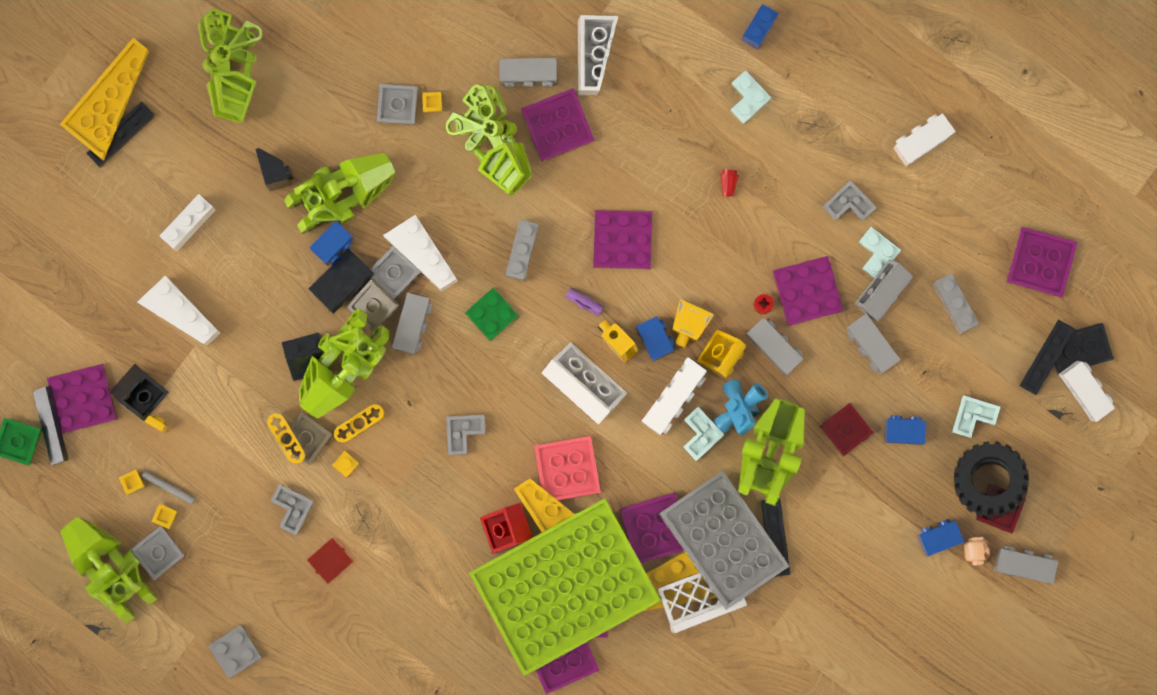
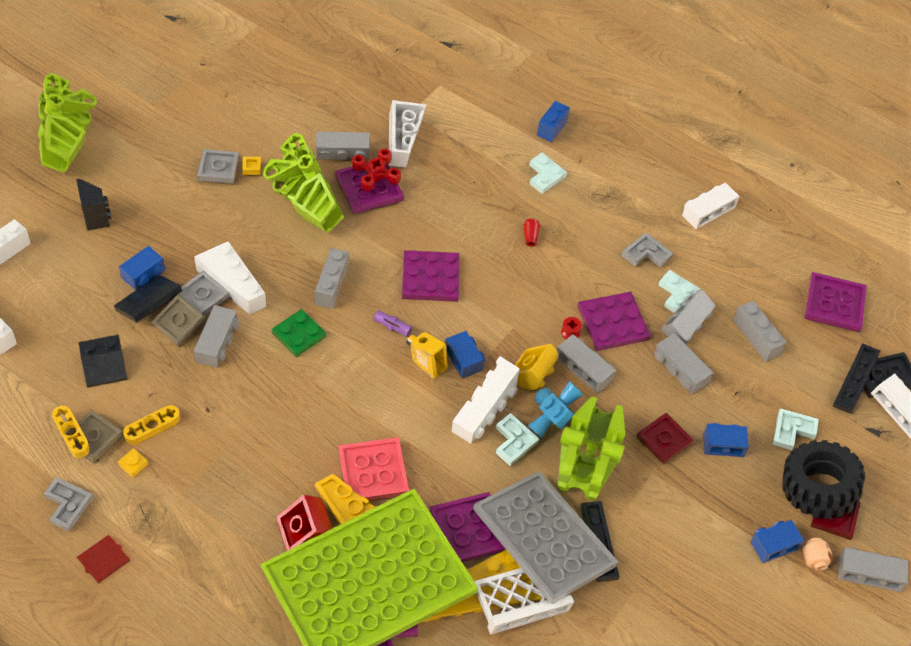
camera: 10 degrees left, 30 degrees down
(322, 389) = (118, 381): lime piece -> none
(366, 175) = (183, 210): lime piece -> none
(457, 430) = (260, 429): light grey plate -> none
(557, 107) = (376, 169): none -> red gear
(584, 383) = (391, 391): white slope -> none
(690, 322) = (500, 340): yellow torso -> none

